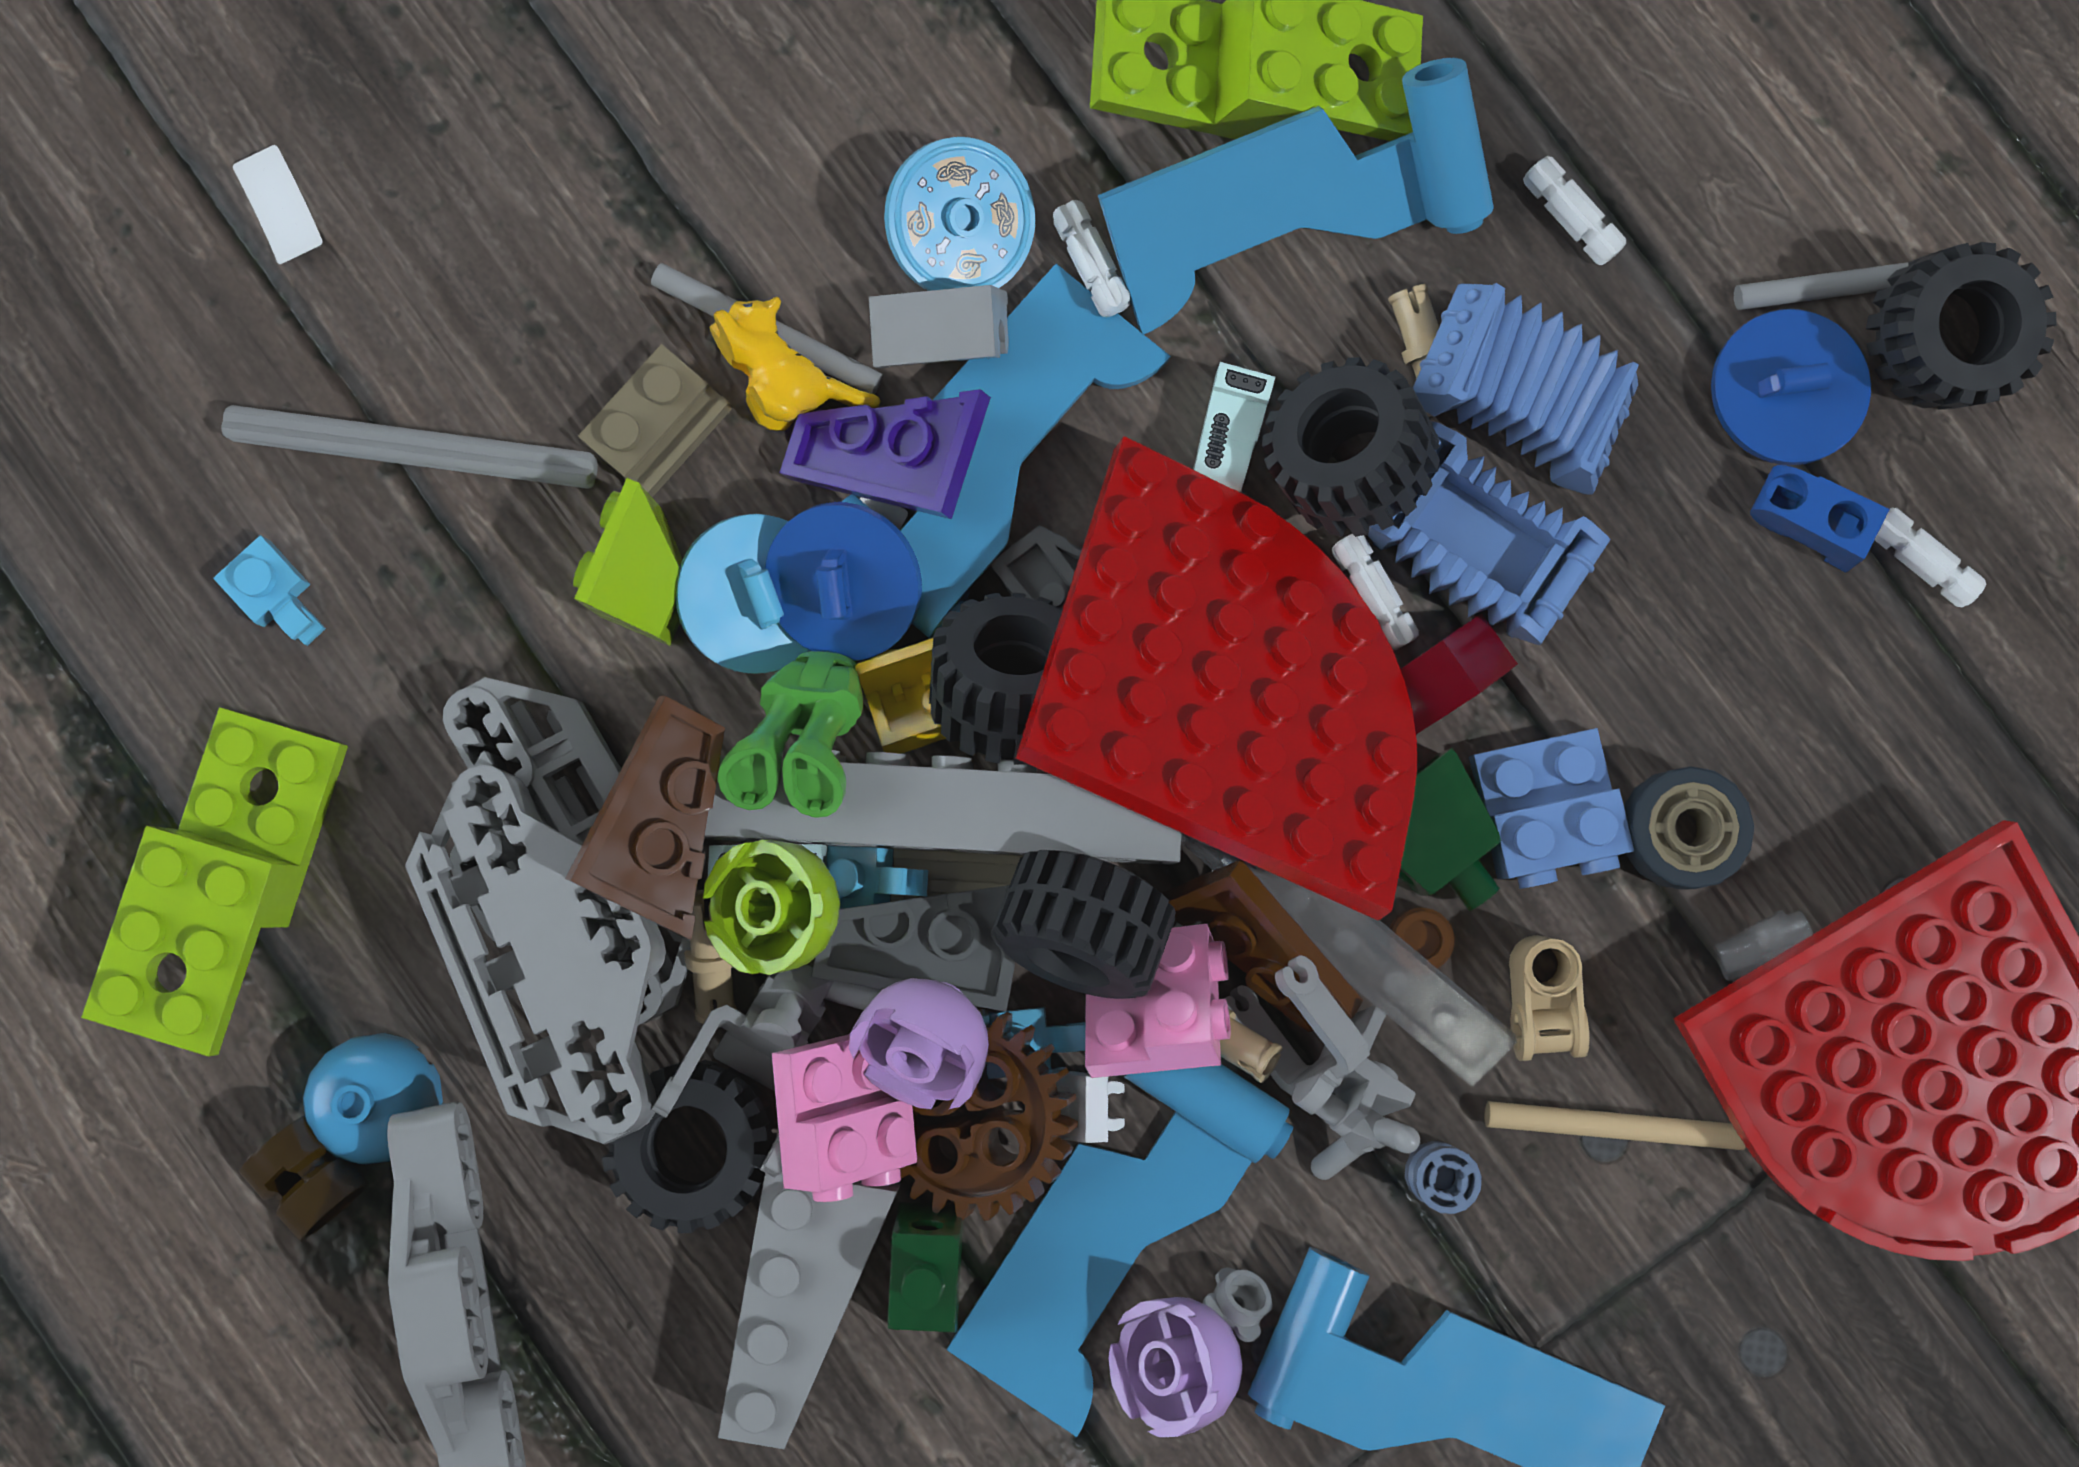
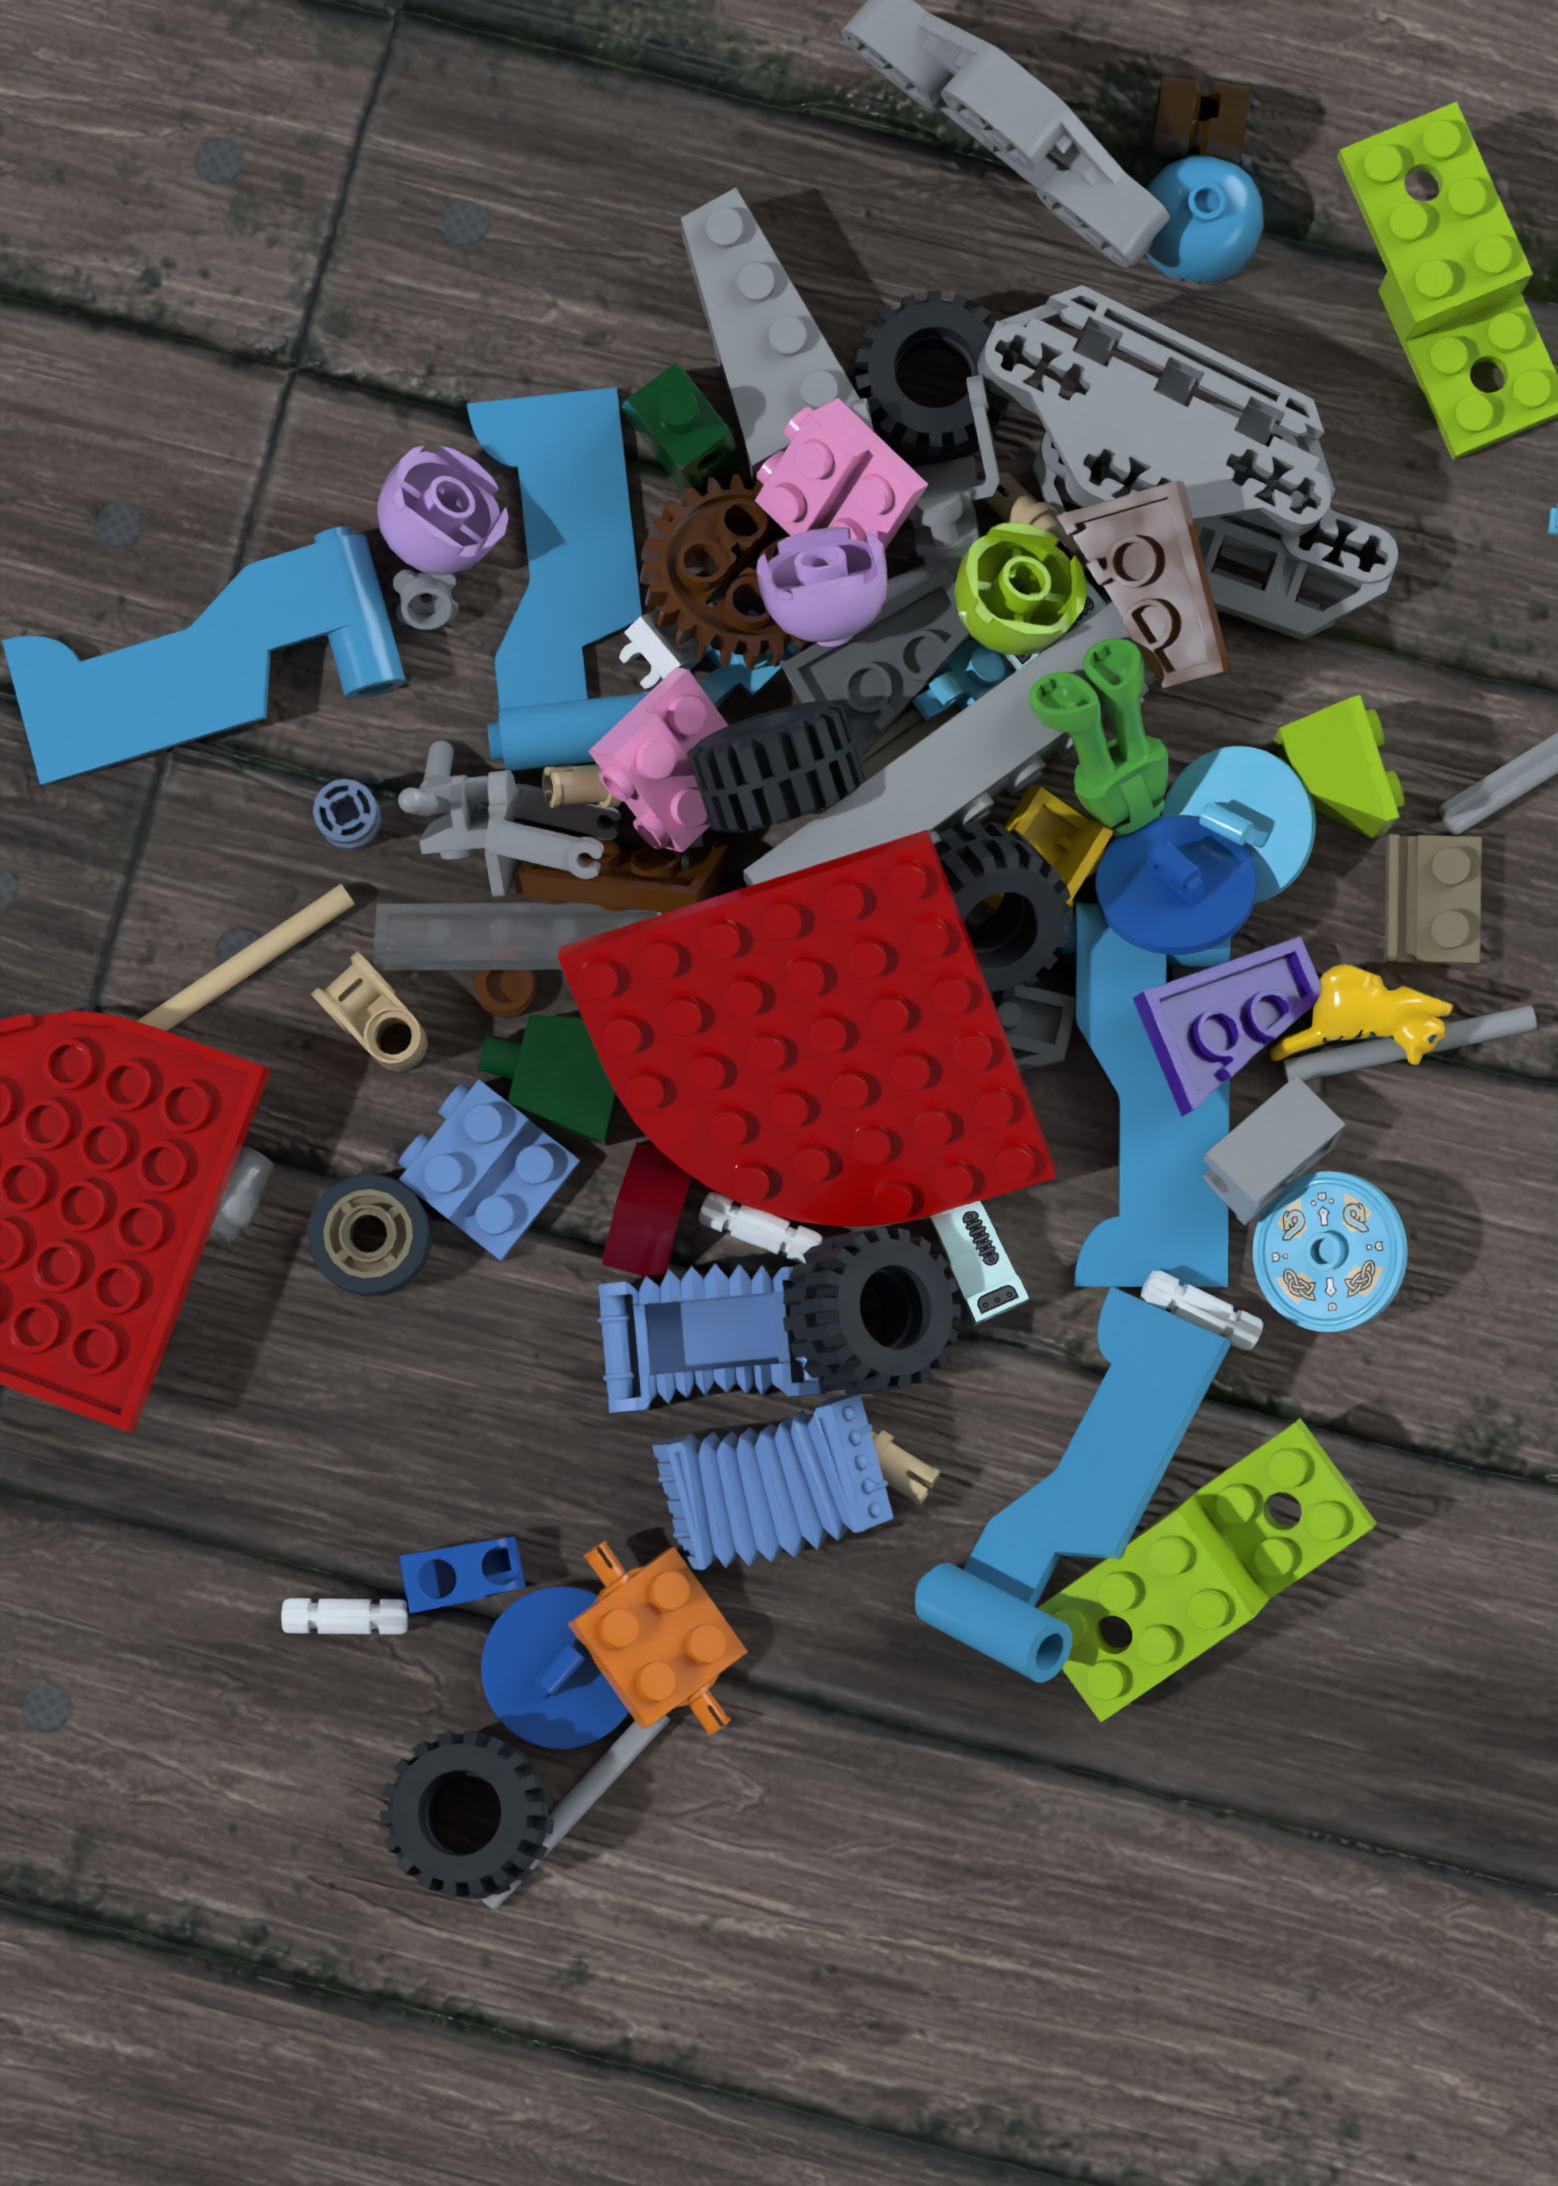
camera: 145 degrees right, 0 degrees up
(1574, 210) = (850, 1672): white axle -> none
(1705, 347) = (657, 1637): none -> orange plate

